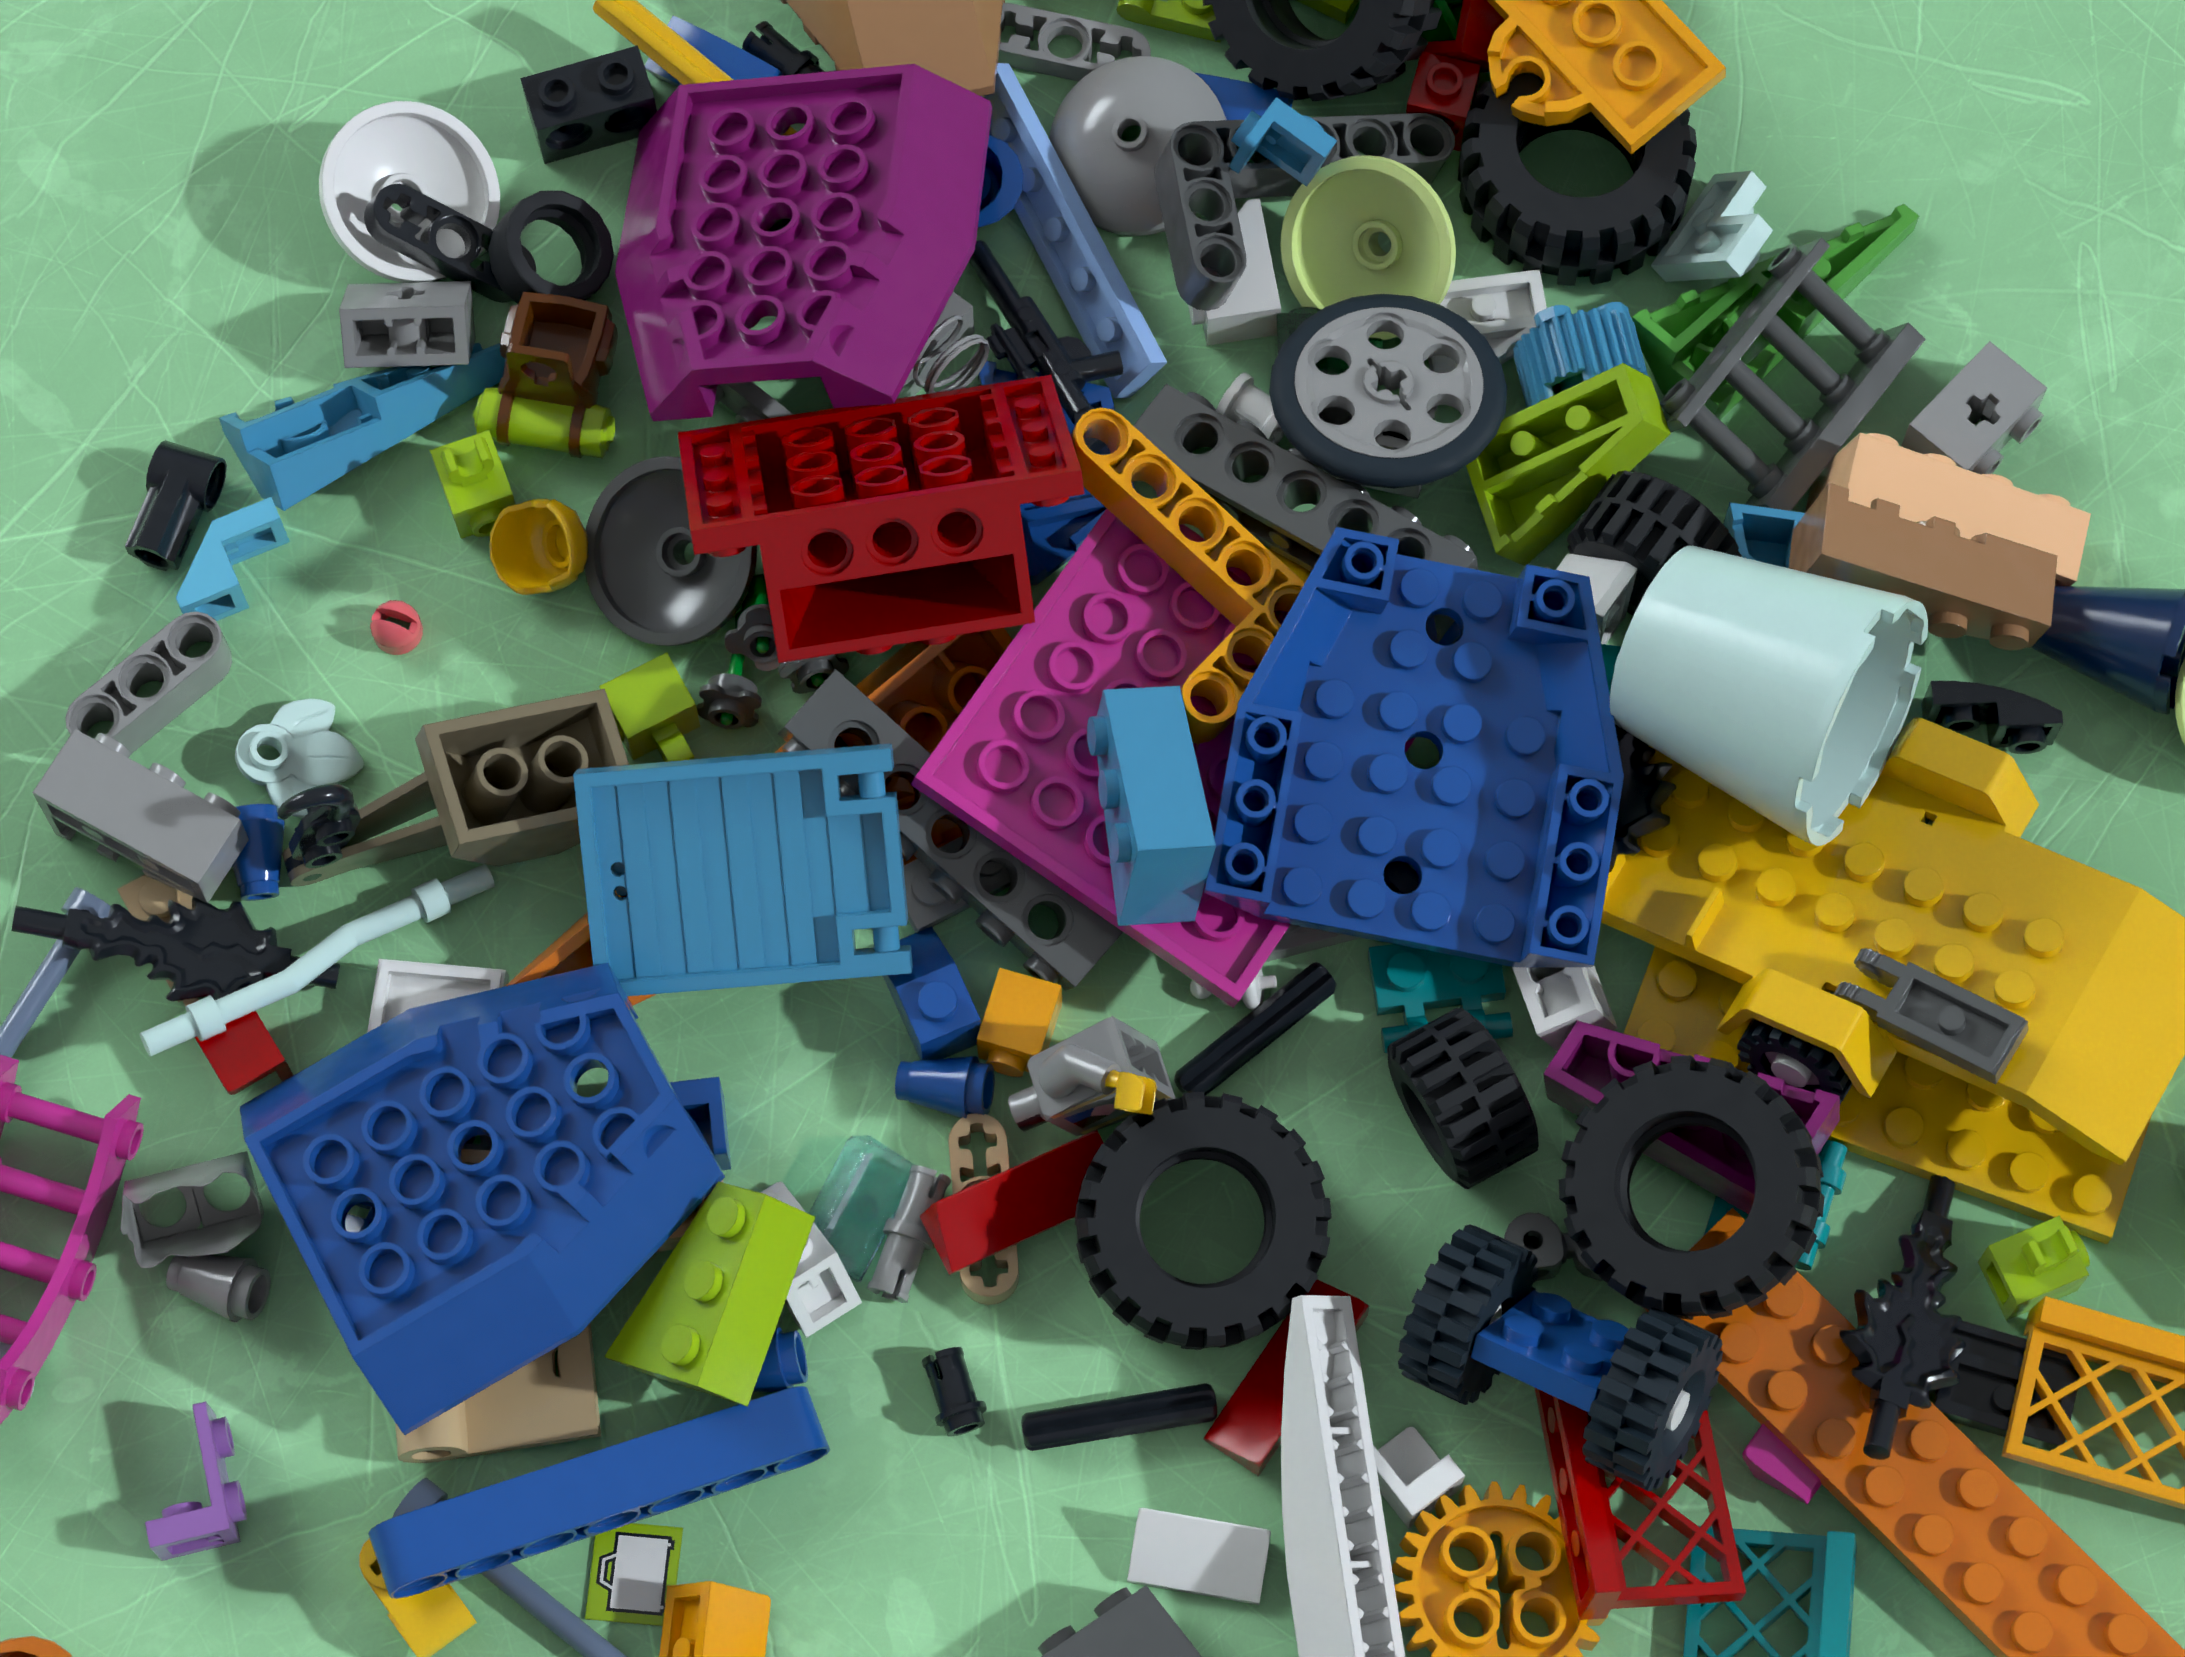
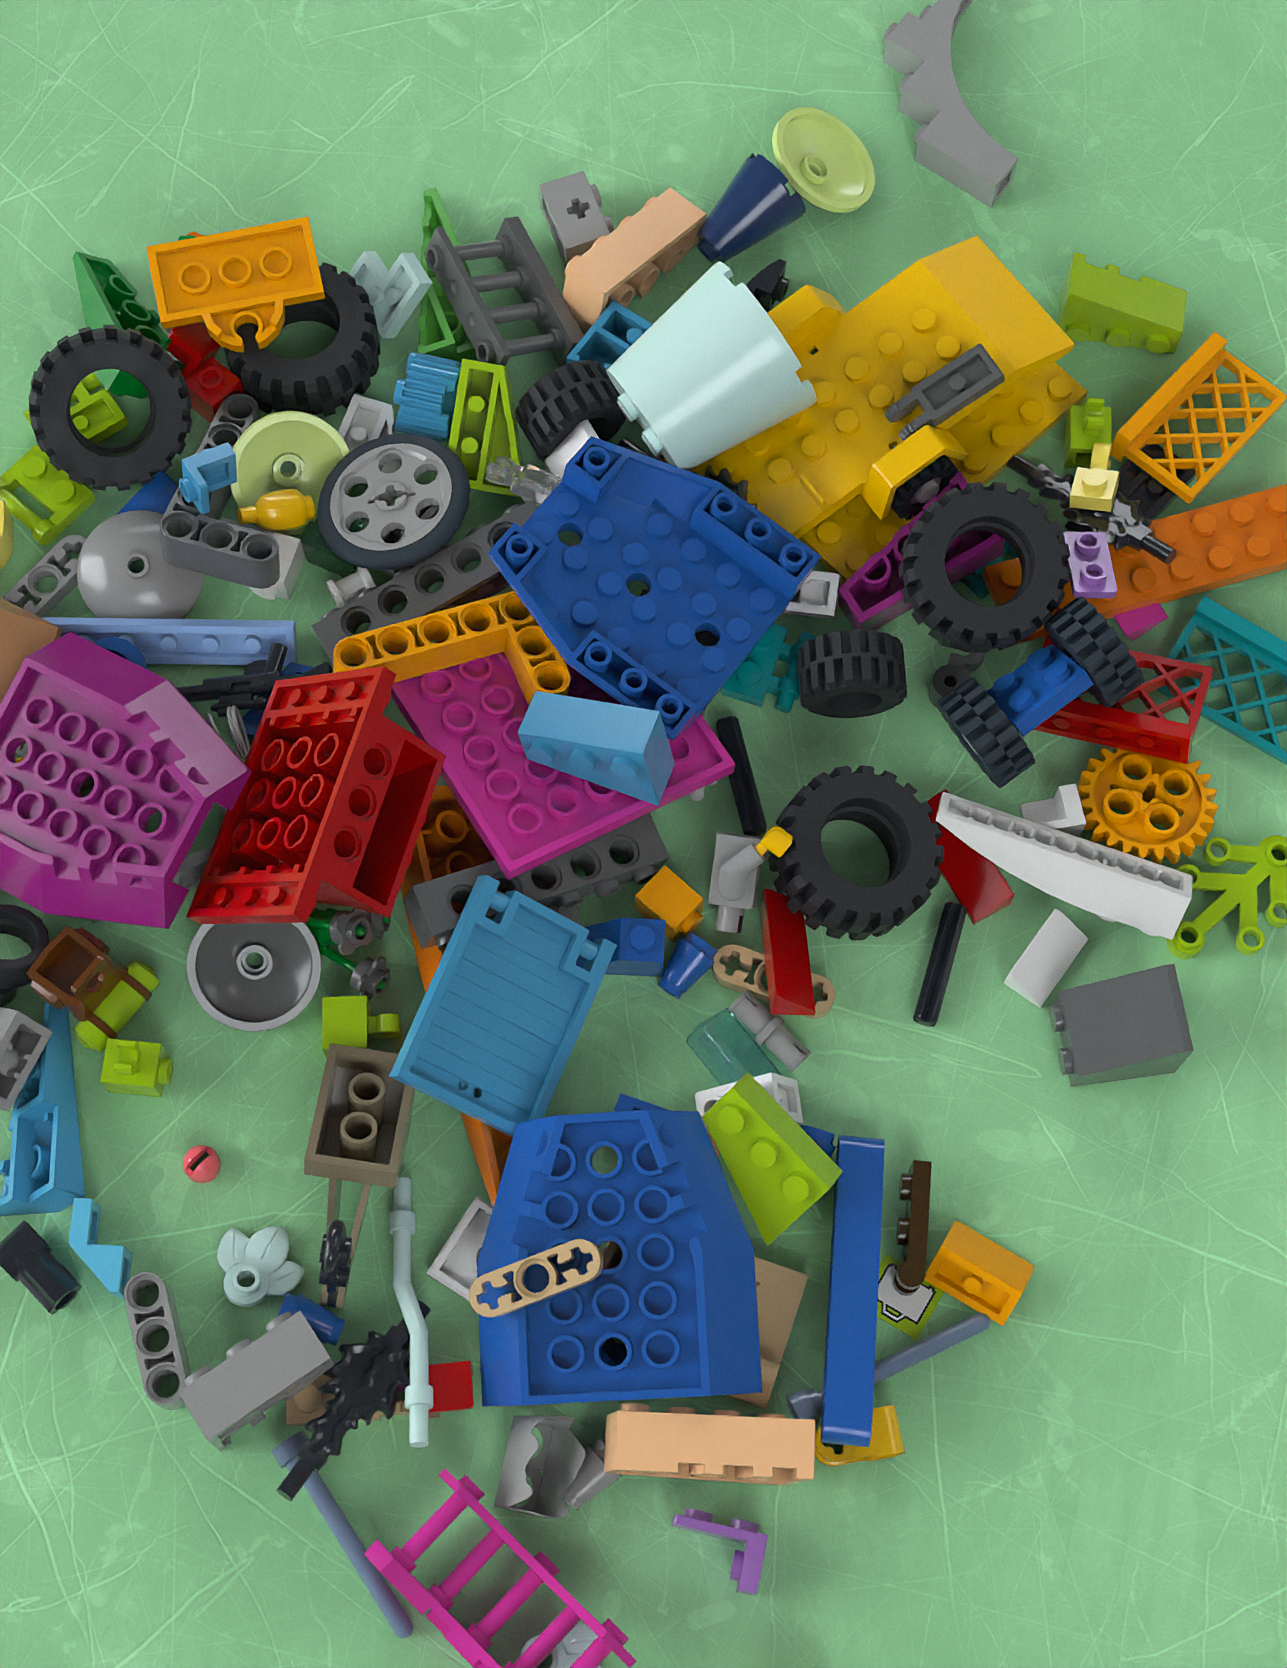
camera: 65 degrees left, 0 degrees up
(304, 1395) = (709, 1446): none -> light nougat wedge
(409, 1098) = (499, 1280): none -> tan beam
(538, 546) = (202, 1046): yellow hair -> none
(724, 1541) = (913, 1229): none -> dark brown plate
(954, 1392) = (881, 1051): black pin -> none
(1302, 260) = (279, 511): none -> yellow plant
(1502, 538) = (525, 481): none -> clear plate
(1777, 1331) = (1090, 565): none -> medium lavender bracket
(1942, 1306) = (1095, 486): none -> light yellow plate
(1966, 585) = (666, 274): medium nougat wedge -> none

